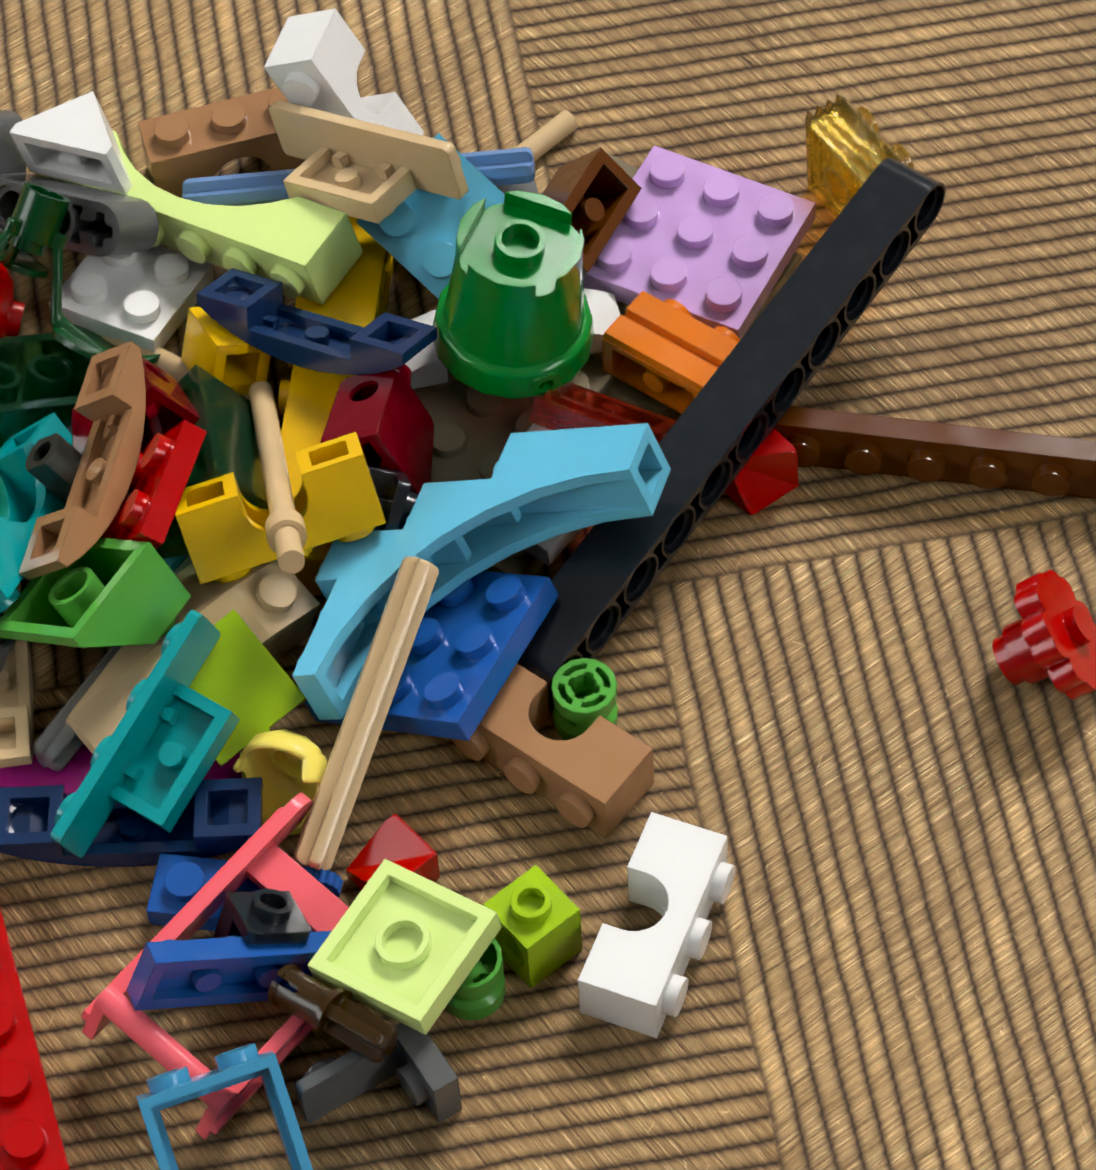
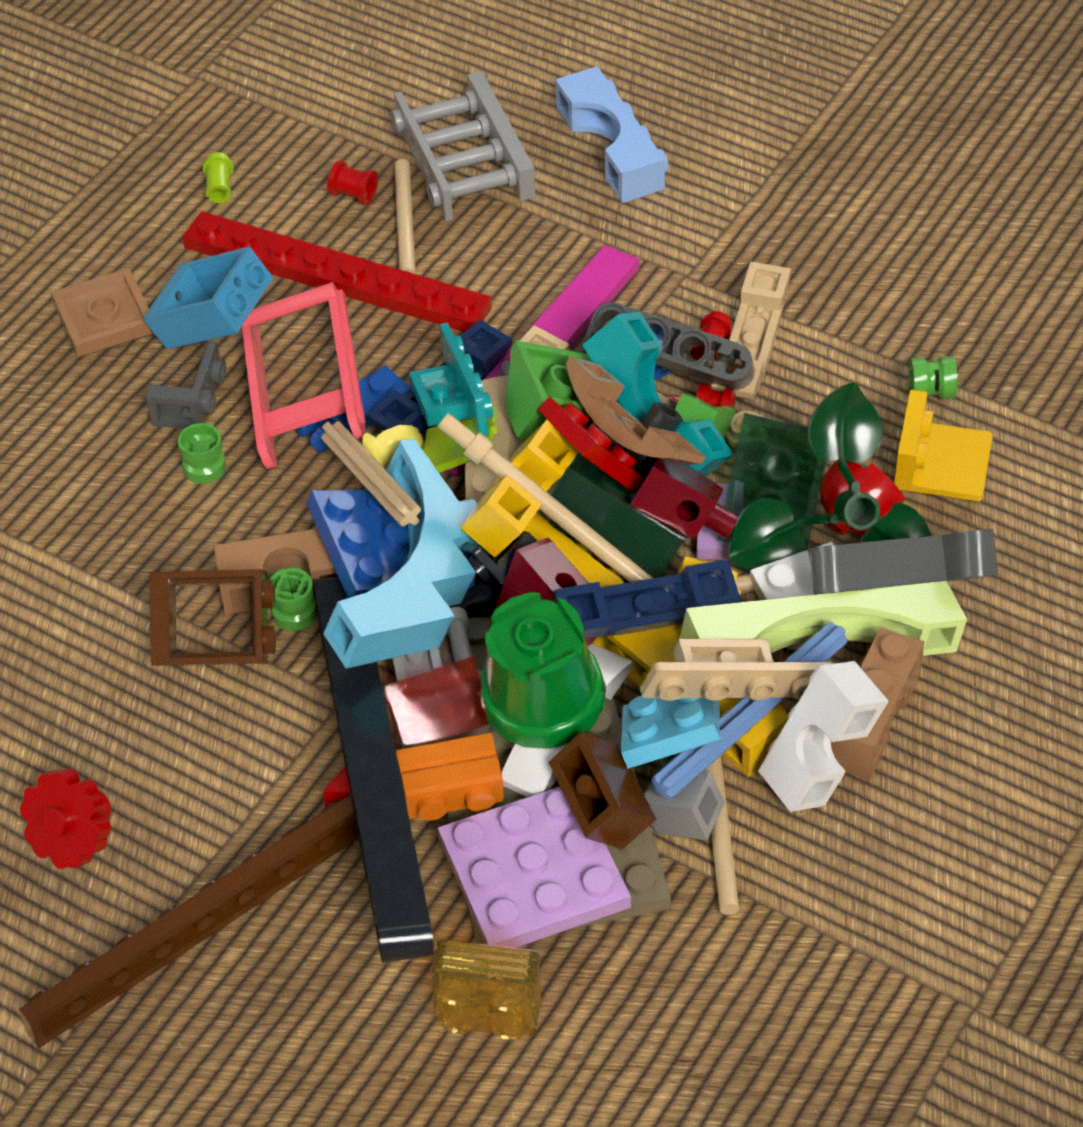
camera: 130 degrees right, 5 degrees down
(73, 145) = (908, 580): white slope -> none
(214, 971) = (297, 348): blue plate -> none
(262, 918) = (306, 372): black bracket -> none
(333, 1014) = (227, 365): dark brown axle -> none
(399, 845) = (296, 469): red slope -> none
(405, 946) = (226, 407): yellowish green plate -> none
(537, 926) = (193, 488): lime brick -> none
(639, 974) = (123, 514): white arch -> none
(702, 719) = (163, 617): none -> reddish brown window

